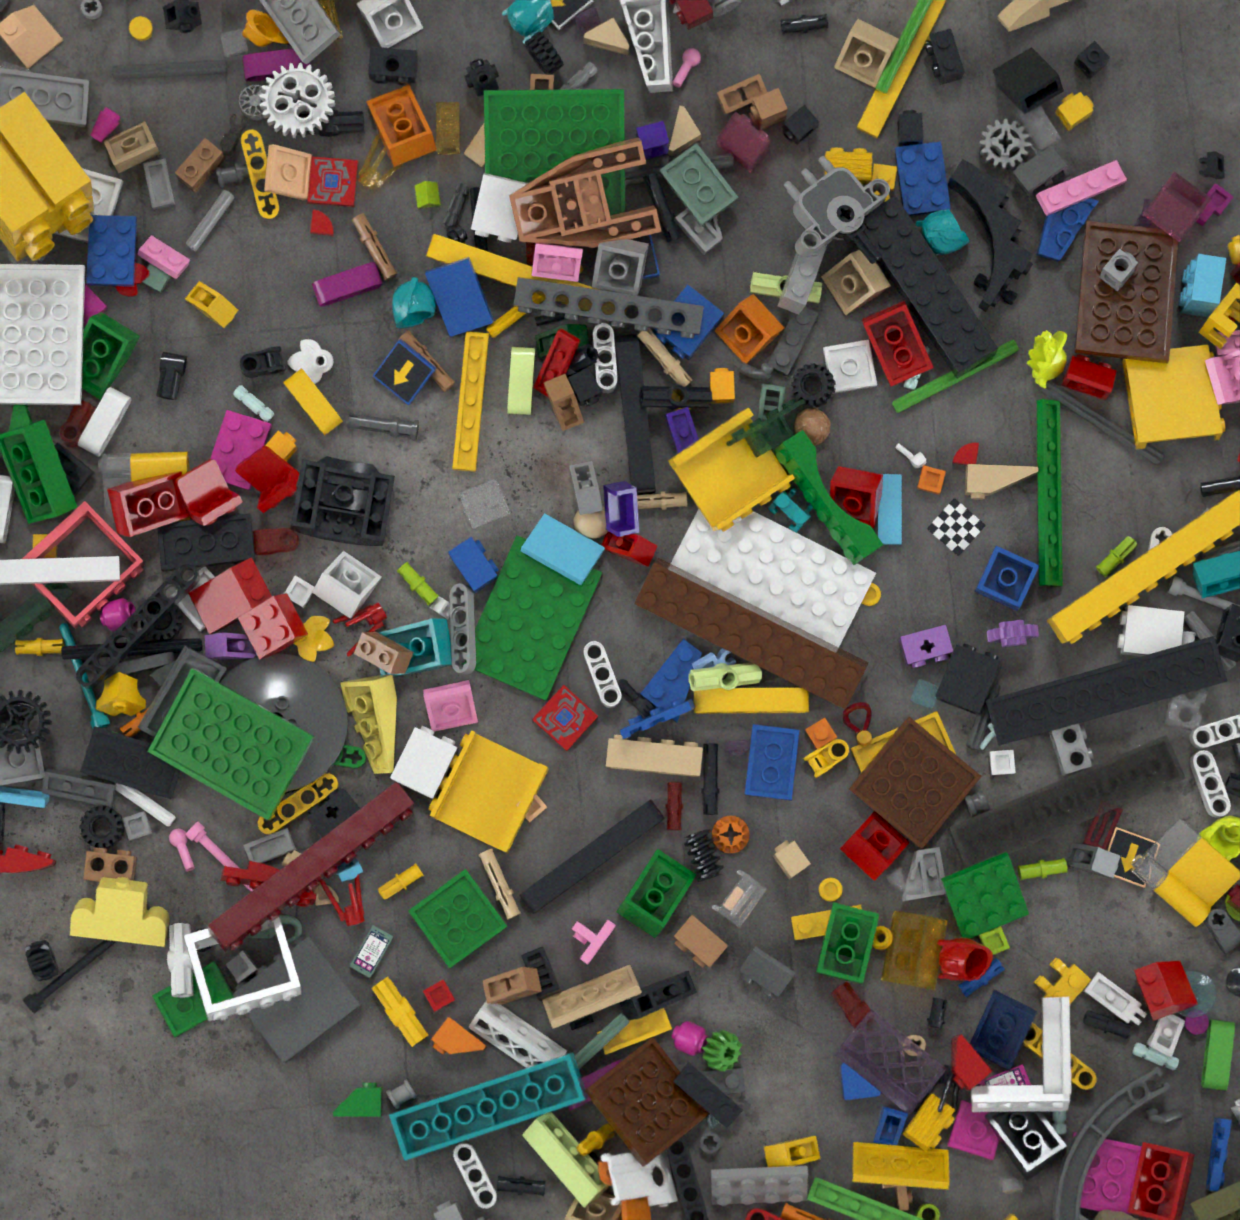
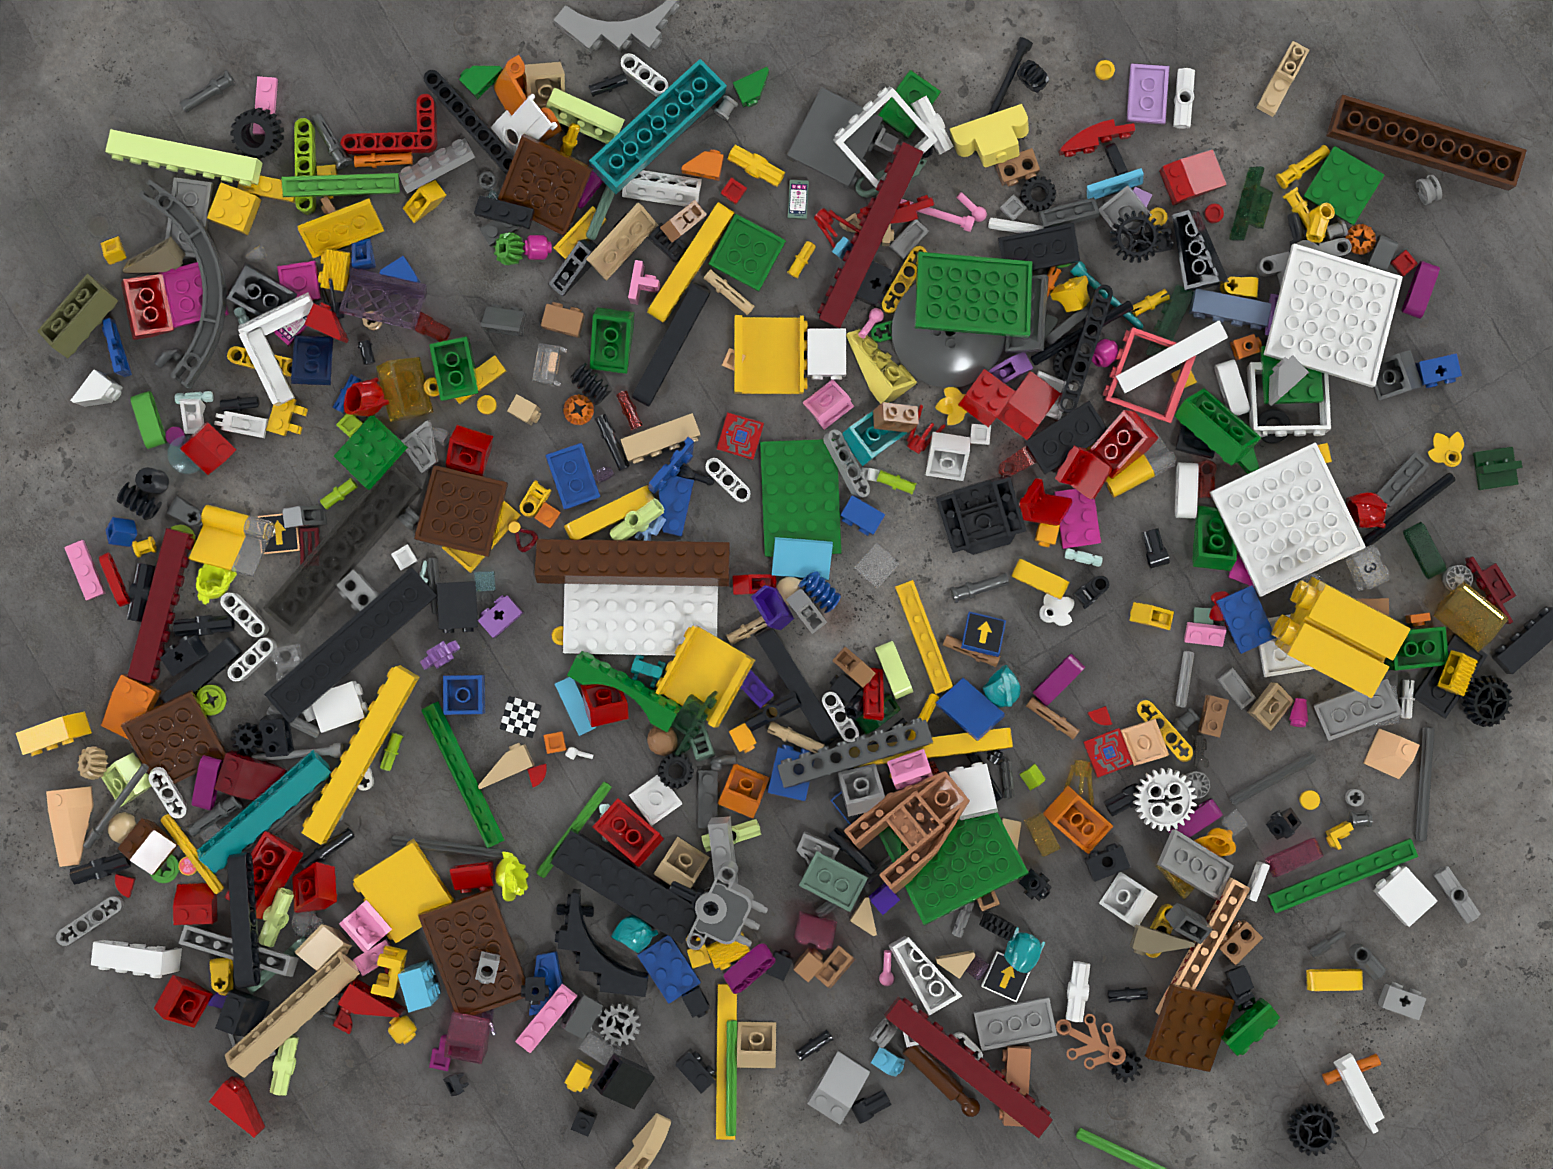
camera: 155 degrees right, 5 degrees up
(349, 778) = (875, 316): none -> bright pink bar
(525, 938) = (690, 262): none -> yellow beam
(559, 503) = (821, 590): none -> blue piece
(834, 135) = (749, 968): none -> magenta beam
(1081, 230) = (543, 990): none -> black brick

